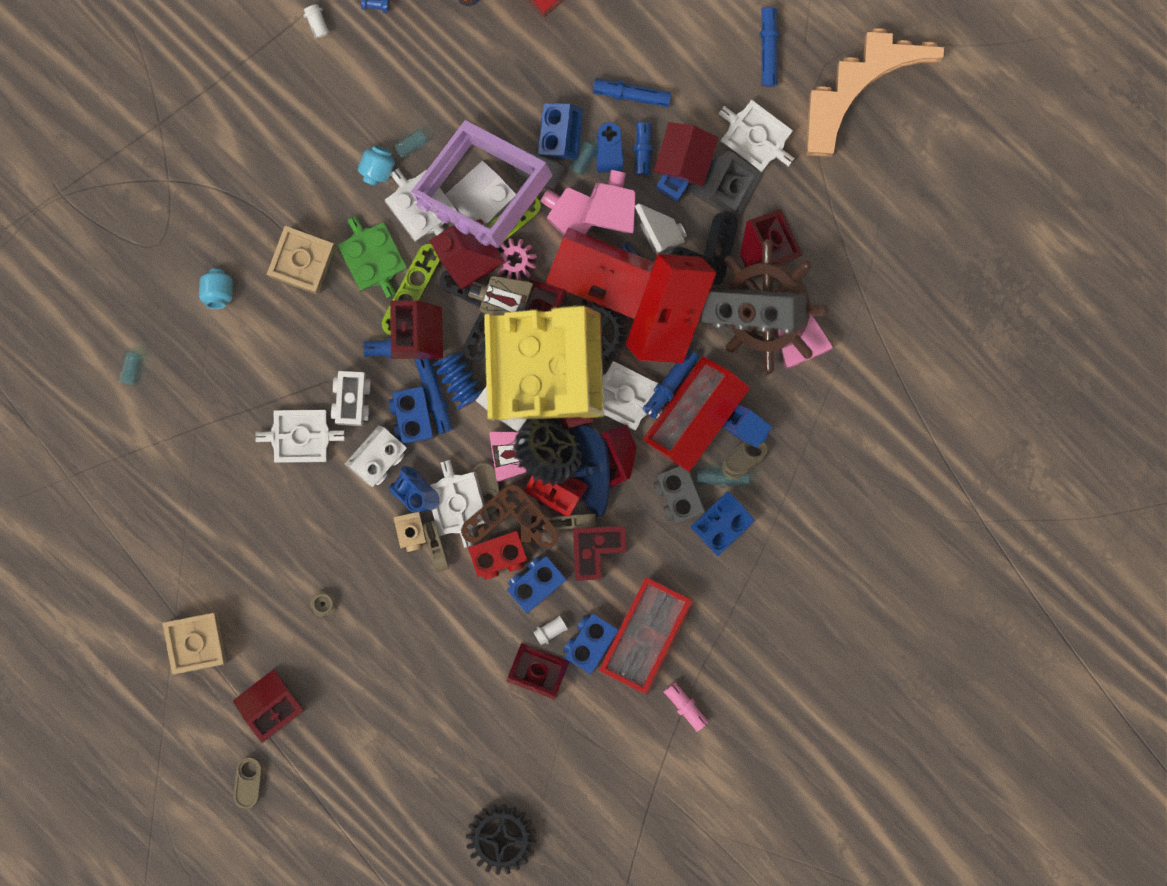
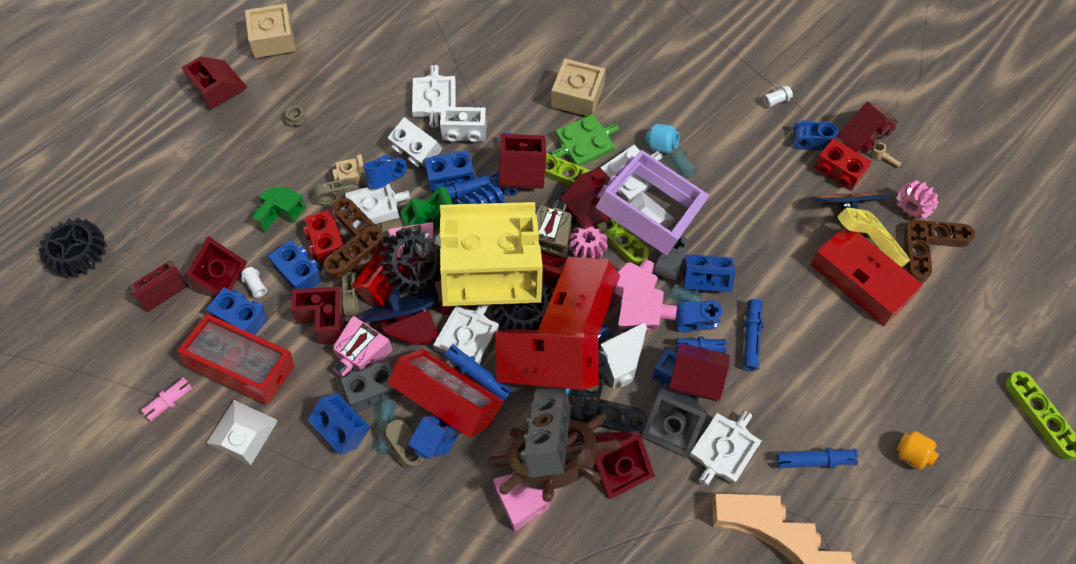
camera: 90 degrees right, 25 degrees down
(215, 289) = (552, 37): medium azure head -> none
(247, 788) = (154, 73): dark tan piece -> none
(449, 608) = (275, 203): none -> green brick
(471, 439) = (426, 211): none -> green brick
(547, 739) = (158, 286): none -> dark red slope
(636, 509) = (359, 347): none -> bright pink torso
(722, 626) = (242, 432): none -> white slope

